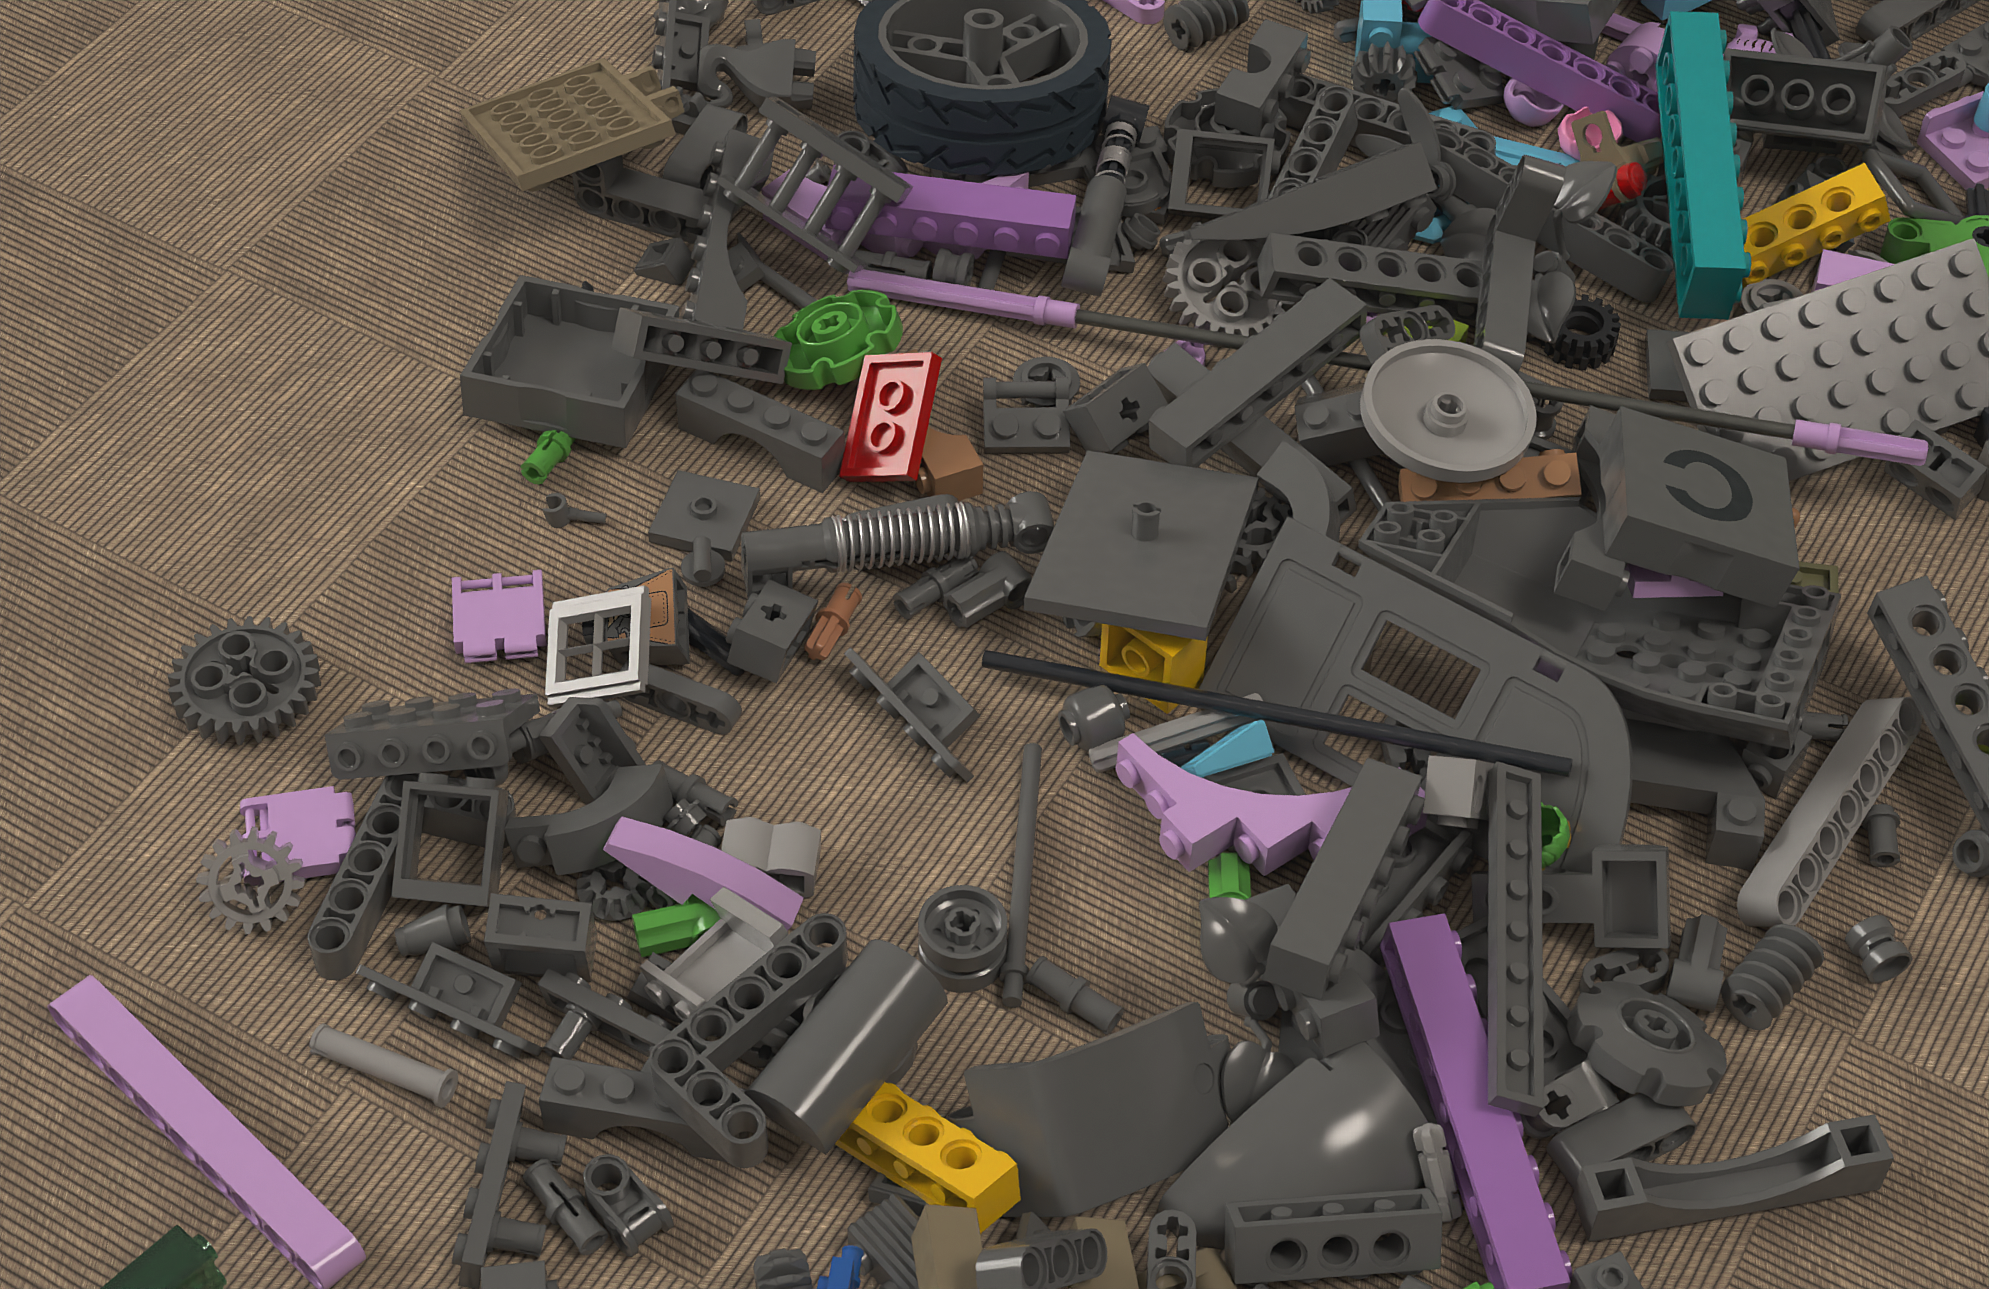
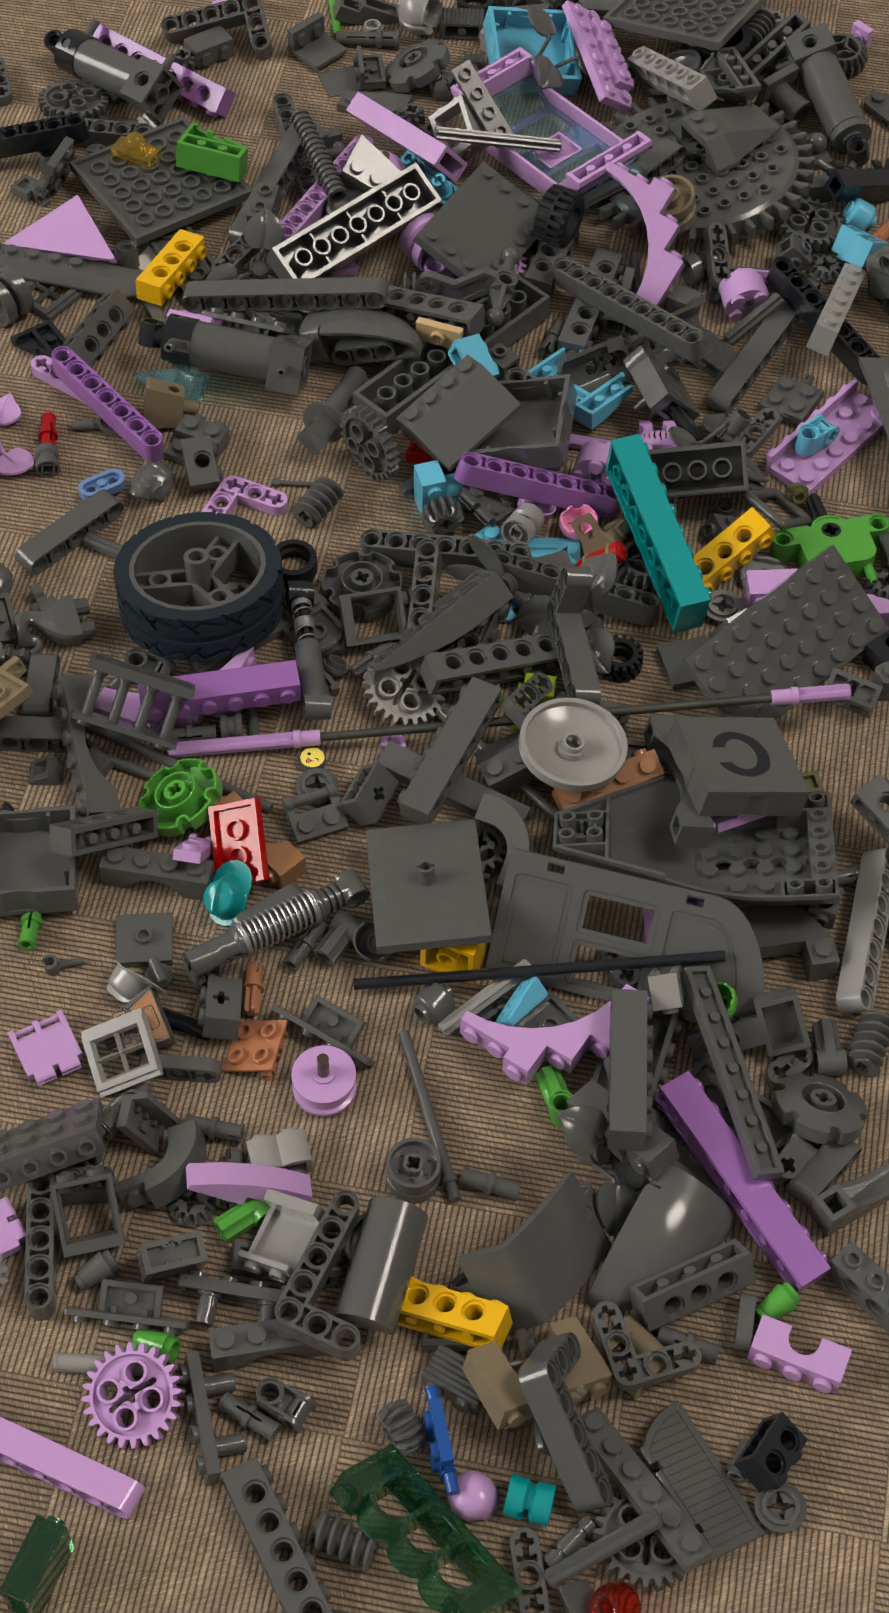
camera: 20 degrees left, 5 degrees up
(404, 1117) = (147, 1420): none -> lavender gear
(476, 1063) = (165, 1341): none -> bright green cone
(648, 555) = (127, 985): none -> light grey piece
(684, 816) = (218, 1147): dark grey plate -> none
(805, 704) = (257, 1047): none -> nougat hinge
(819, 406) = (193, 850): none -> lavender hinge
(837, 287) = (167, 760): none -> dark grey piece
(849, 479) = (228, 892): none -> teal piece
(880, 774) = (324, 1080): none -> lavender wheel
(1030, 624) = (365, 943): none -> dark grey hair
(1055, 343) = (312, 758): none -> light yellow tile
(1144, 67) = (301, 549): none -> black tyre
(1274, 60) = (372, 559): dark grey arch -> none
(1438, 1169) = (734, 1223): light grey axle -> none
(1503, 112) = (523, 523): none -> light grey wheel
(1955, 171) = (795, 488): none -> olive plate

